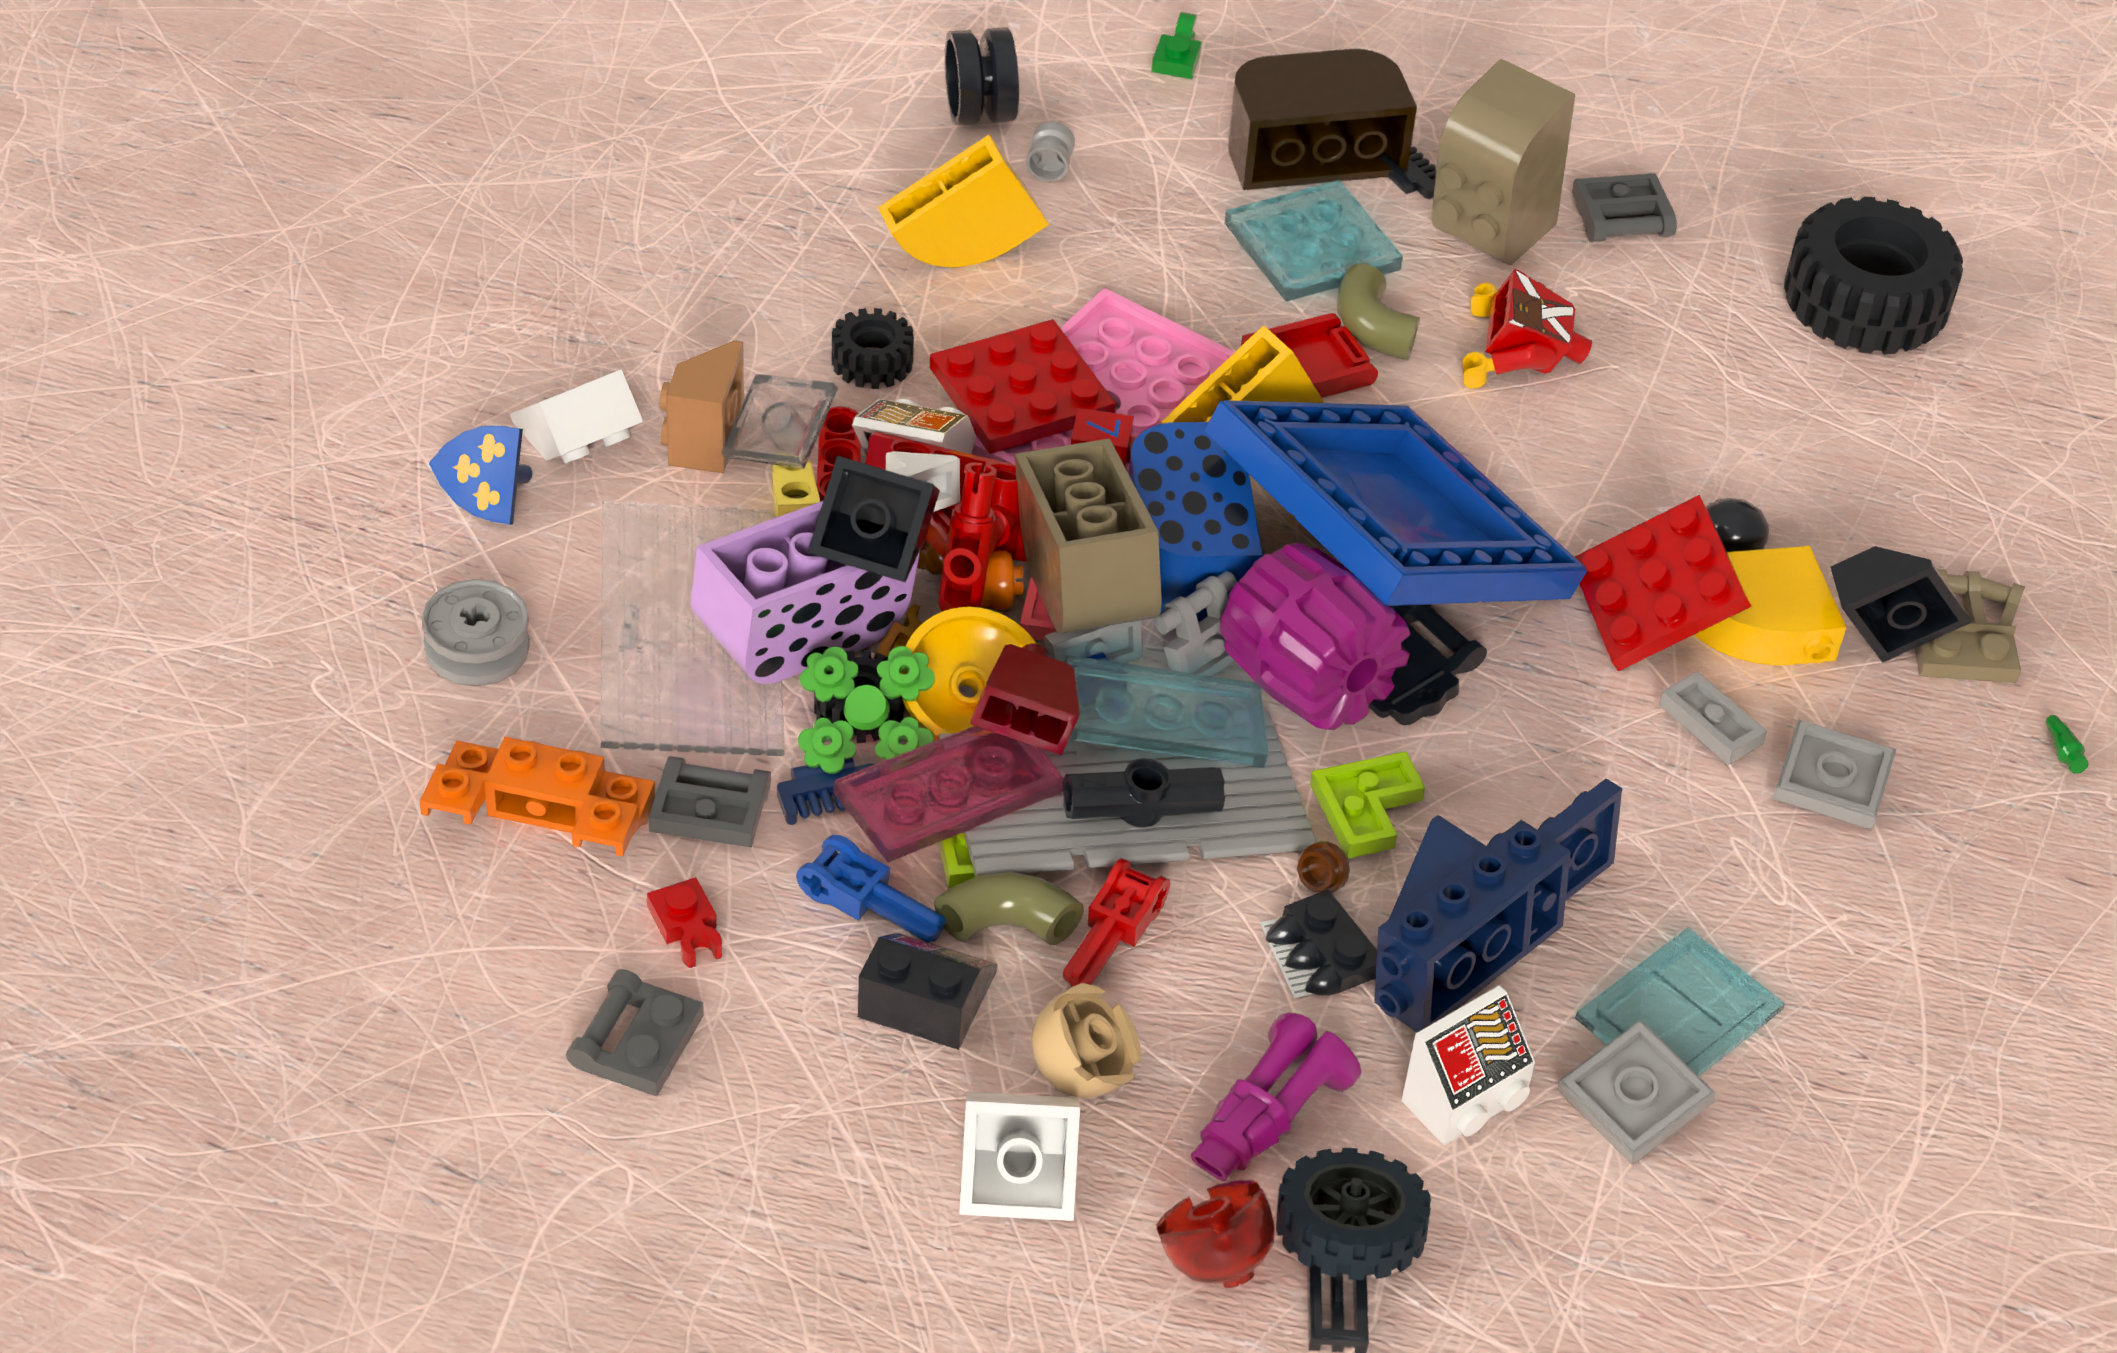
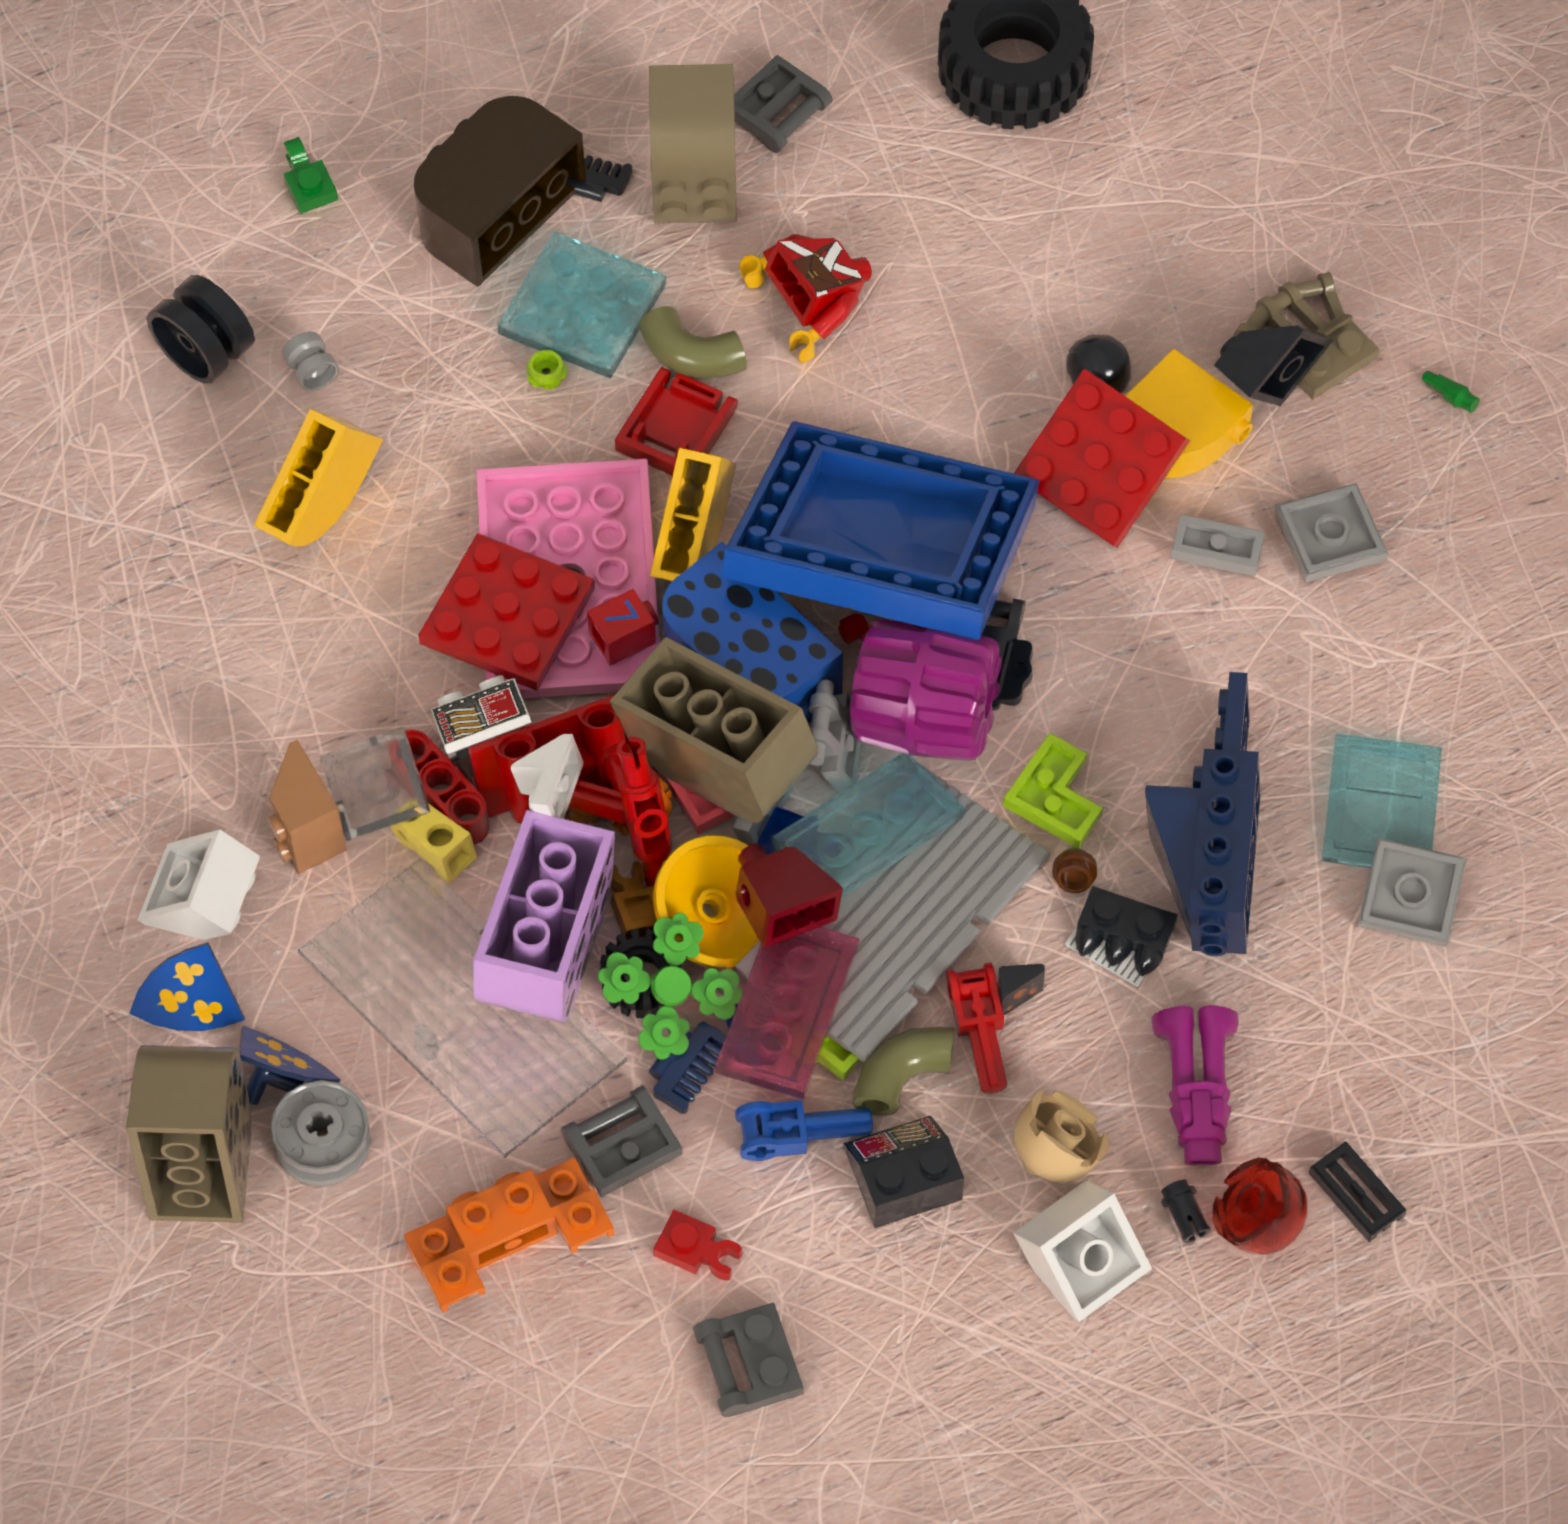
camera: 35 degrees left, 15 degrees up
(359, 536) = (190, 1132): none -> dark tan brick
(494, 559) = (277, 1064): none -> shield
(872, 365) = (350, 633): black tyre -> none
(873, 519) = (577, 840): black slope -> none
(1143, 792) = (905, 925): black piece -> none
(1154, 1181) = (1184, 1208): none -> black pin
(1177, 916) = (1019, 984): none -> black slope
(1236, 264) = (546, 361): none -> lime plate
(1351, 1230) = (1321, 1096): black wheel -> none
(1468, 1067) = (1309, 963): slope -> none

